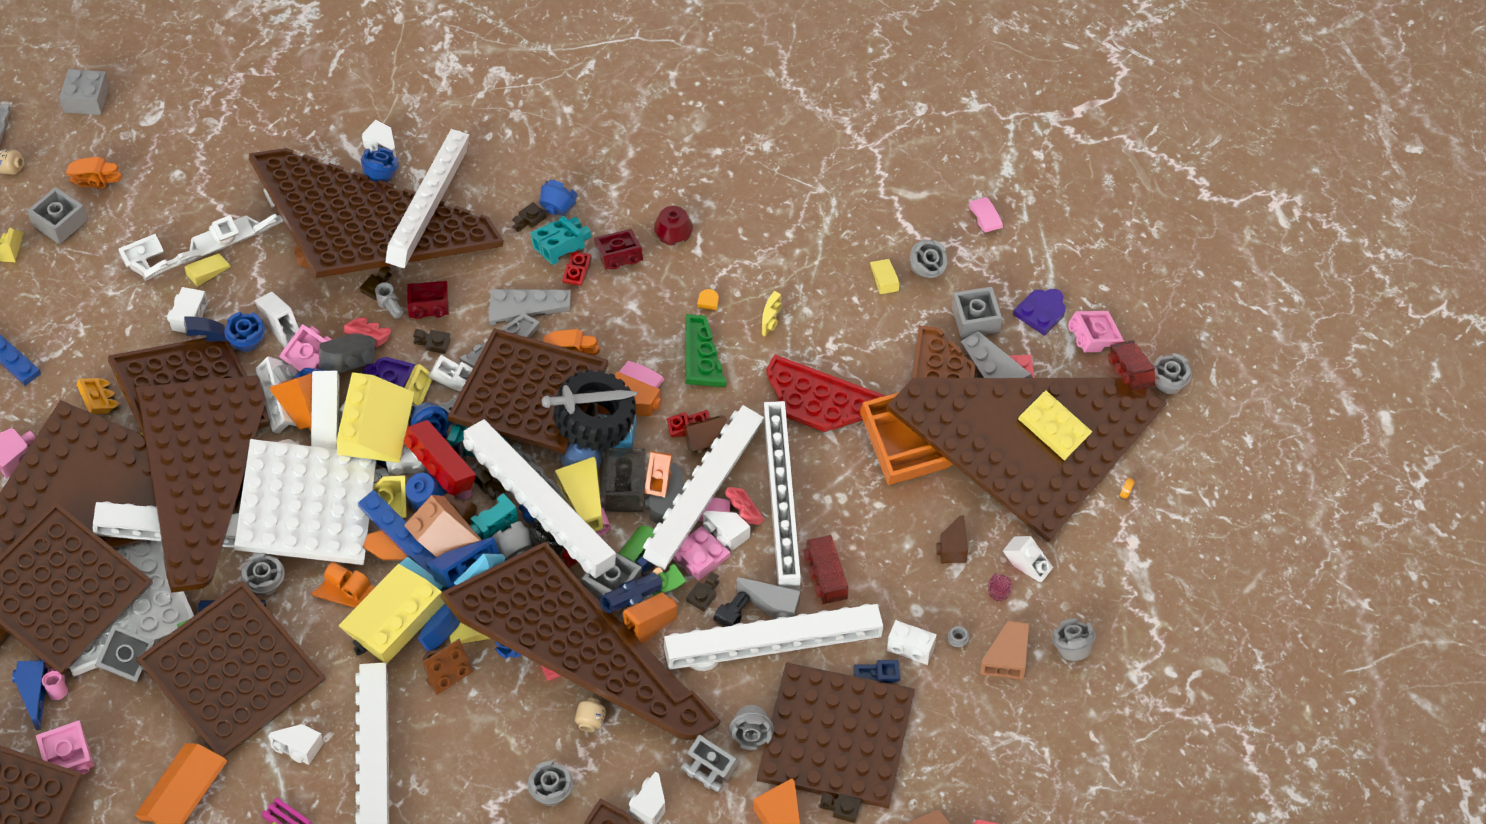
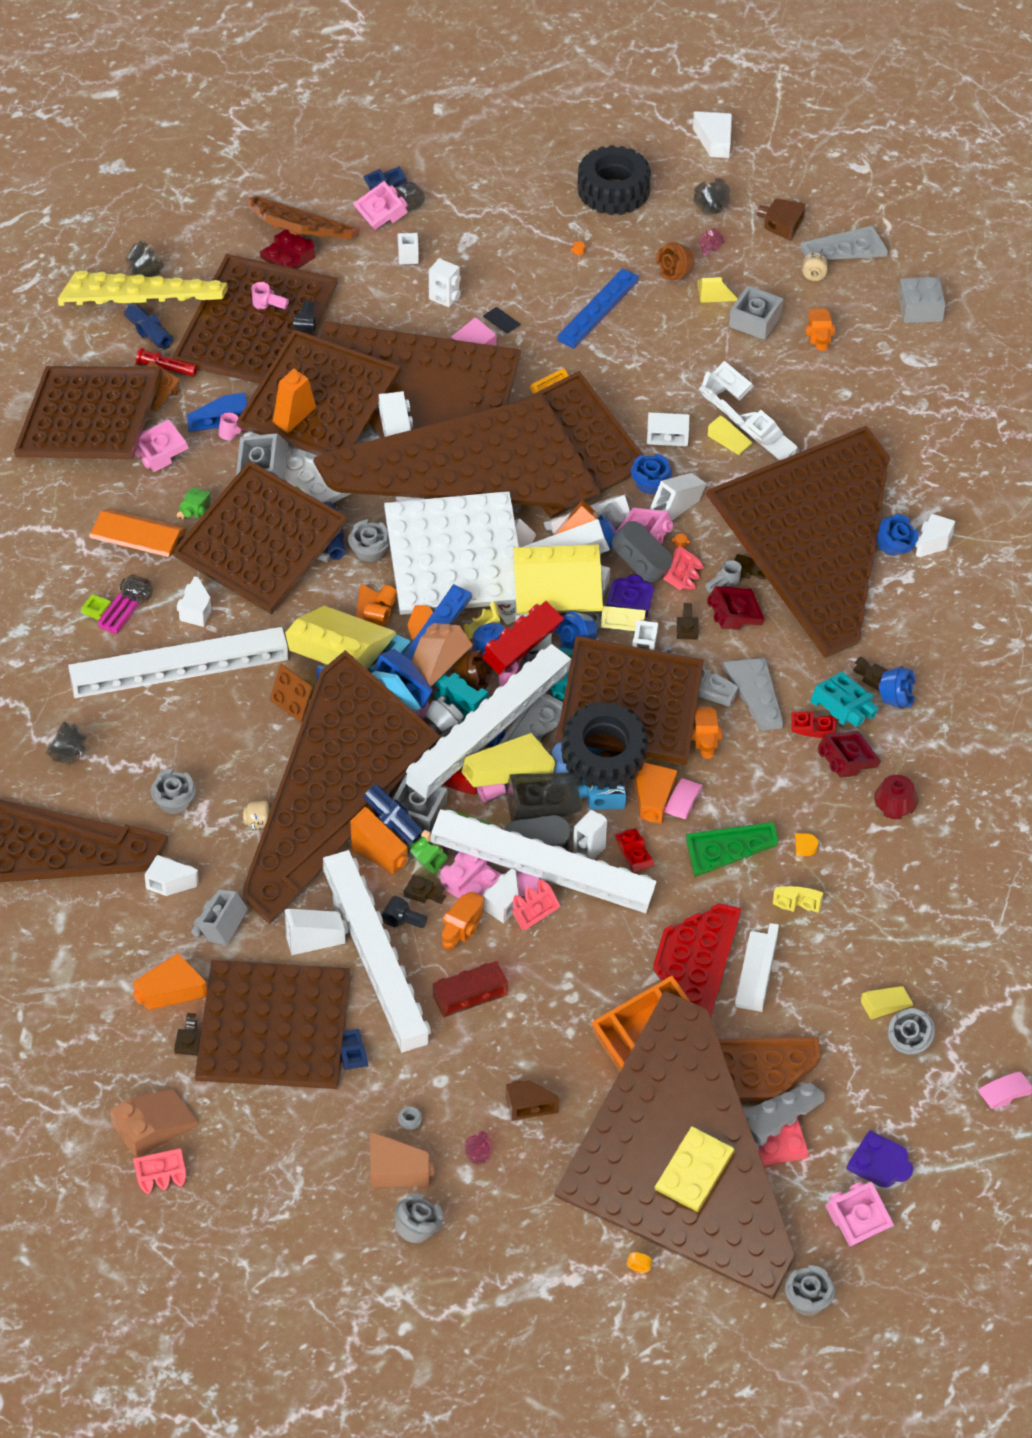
camera: 80 degrees right, 5 degrees down
(73, 603) = (293, 401): none -> orange slope
(161, 728) = (194, 504): none -> bright green piece
(202, 326) = (643, 438): dark blue slope -> none
(261, 796) = (136, 589): none -> clear smoke head
(328, 328) = (680, 540): none -> orange piece
(427, 199) = (852, 572): white brick -> none
(570, 399) = (594, 708): light grey sword -> none
(658, 473) = (544, 817): slope -> none
(680, 445) = (590, 835): none -> white brick
(703, 433) = (618, 854): reddish brown slope -> none
(742, 682) = (313, 930): none -> white slope
(750, 561) = (462, 919): none -> orange hinge
(751, 727) = (263, 942): light grey cone -> none
(769, 598) = (420, 946): light grey slope -> none
(781, 495) = (552, 934): white brick -> none
(837, 355) = (757, 969): none -> white panel
(911, 642) = (390, 1072): white brick -> none
(976, 311) = (849, 1088): light grey brick -> none
(1028, 557) = (521, 1172): white slope -> none
(1132, 365) = (808, 1247): clear red brick -> none

